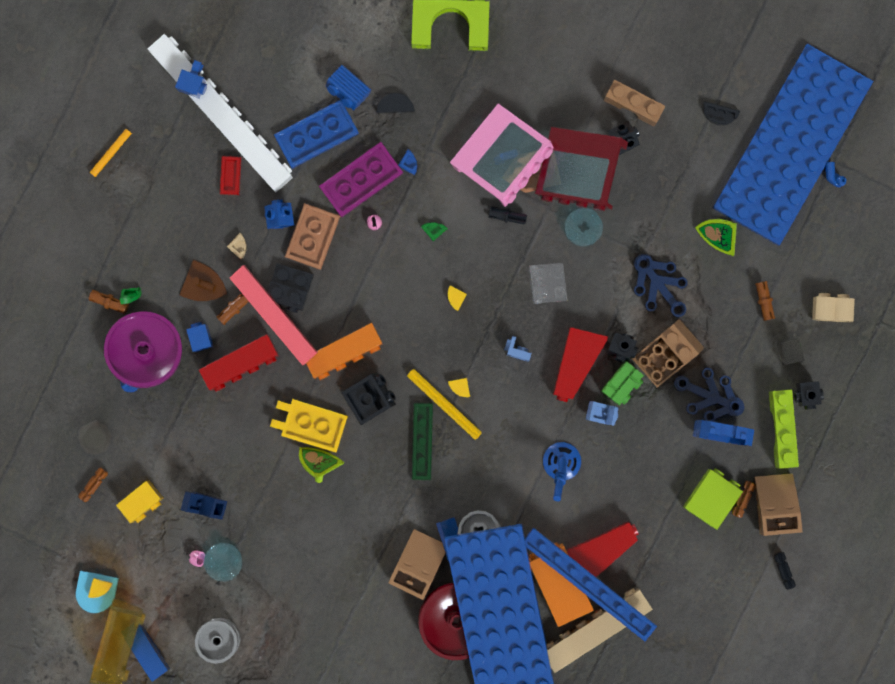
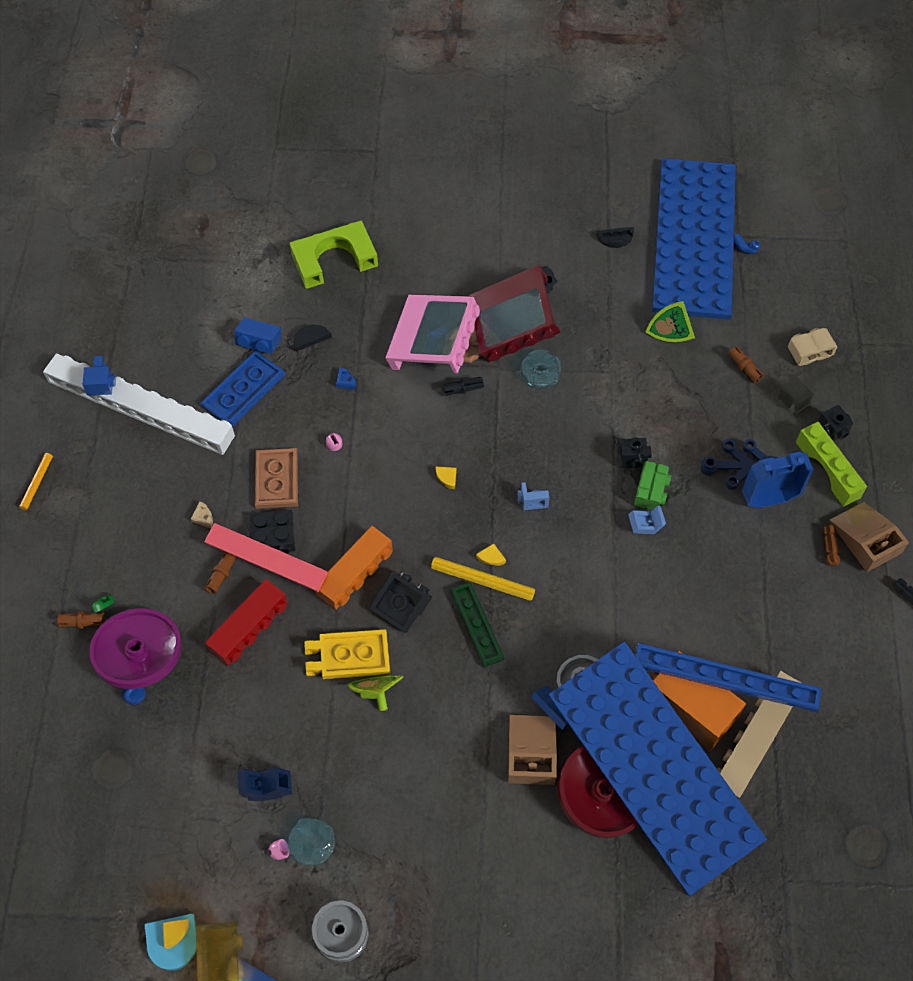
camera: 25 degrees left, 25 degrees down
(93, 484) = (127, 819): dark orange axle -> none
(139, 502) = (189, 813): yellow brick -> none
(199, 337) = (194, 614): blue brick -> none
(202, 284) = (178, 566): reddish brown shield -> none
(230, 175) = (170, 455): red tile -> none
(279, 215) = (234, 467): blue brick -> none
(361, 179) = (304, 409): magenta plate -> none
(434, 230) = (396, 427): green tile -> none
(547, 283) = (530, 428): clear hinge -> none
(564, 472) = (633, 584): blue dish -> none
(577, 359) = (596, 481): red slope -> none
(604, 549) = (725, 639): red slope -> none
(630, 99) = (547, 250): medium nougat arch -> none
(658, 282) = (639, 388): dark blue plant -> none
(668, 353) = (681, 442): medium nougat slope -> none
(713, 498) = (801, 555): lime brick -> none

